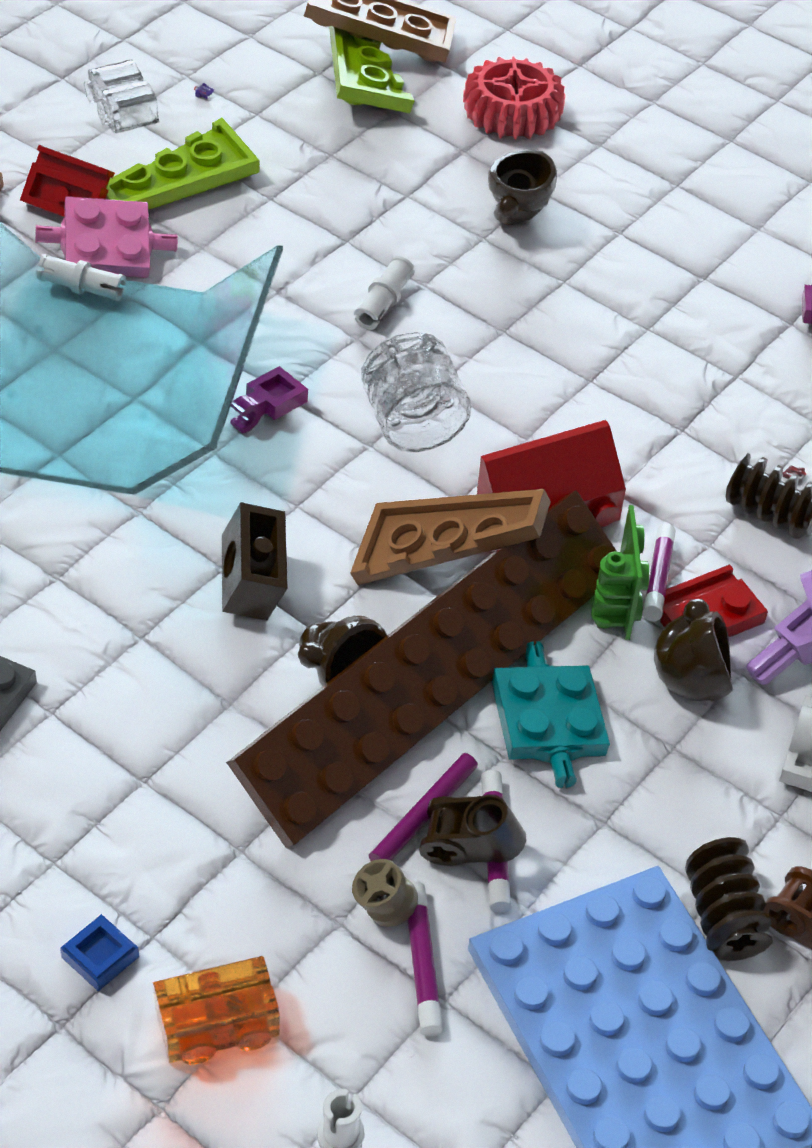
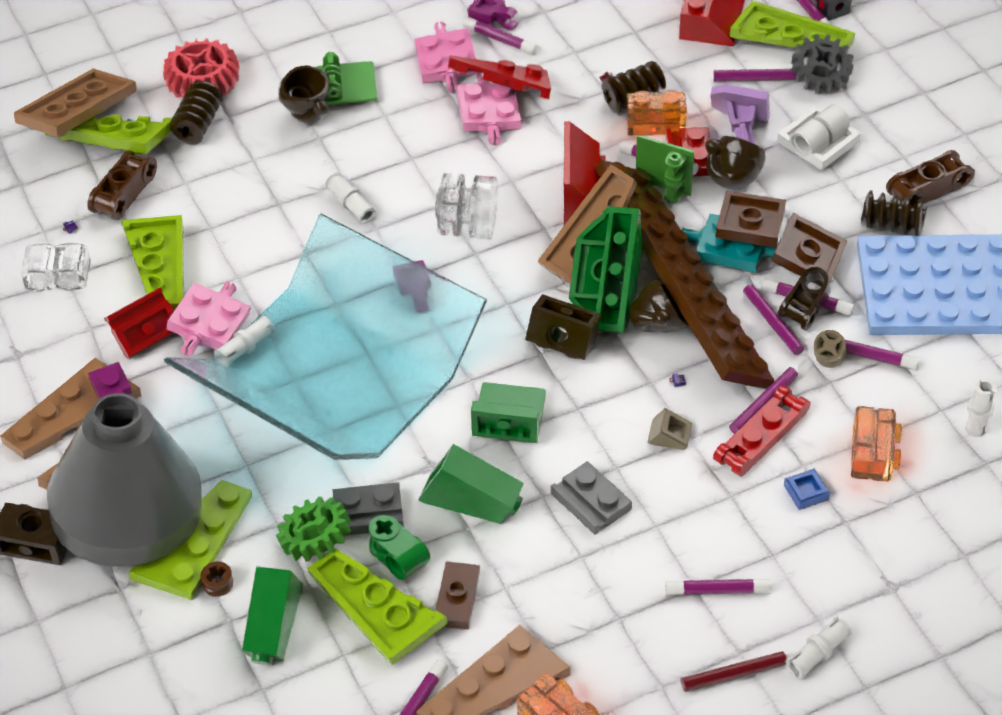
camera: 60 degrees left, 0 degrees up
(86, 561) = (508, 412): none -> bracket
(141, 752) = (669, 430): none -> dark tan slope
(187, 860) = (762, 431): none -> plate
(247, 732) = (677, 380): none -> piece
(253, 846) = (785, 379): none -> magenta bar
(282, 100) = (122, 185): none -> reddish brown piece
(376, 572) = (608, 266): none -> green wedge
(435, 113) = (196, 112): none -> dark brown piece
(577, 806) = (808, 246): none -> plate
(582, 705) = (750, 219): none -> reddish brown plate
(590, 222) = (349, 81): none -> bright green hinge
(641, 369) = (488, 108): none -> bright pink plate
(703, 365) = (506, 73): none -> red wing
(707, 299) = (434, 54): none -> bright pink plate
(745, 538) = (655, 112): none -> clear orange brick
(790, 339) = (500, 35): none -> magenta bar

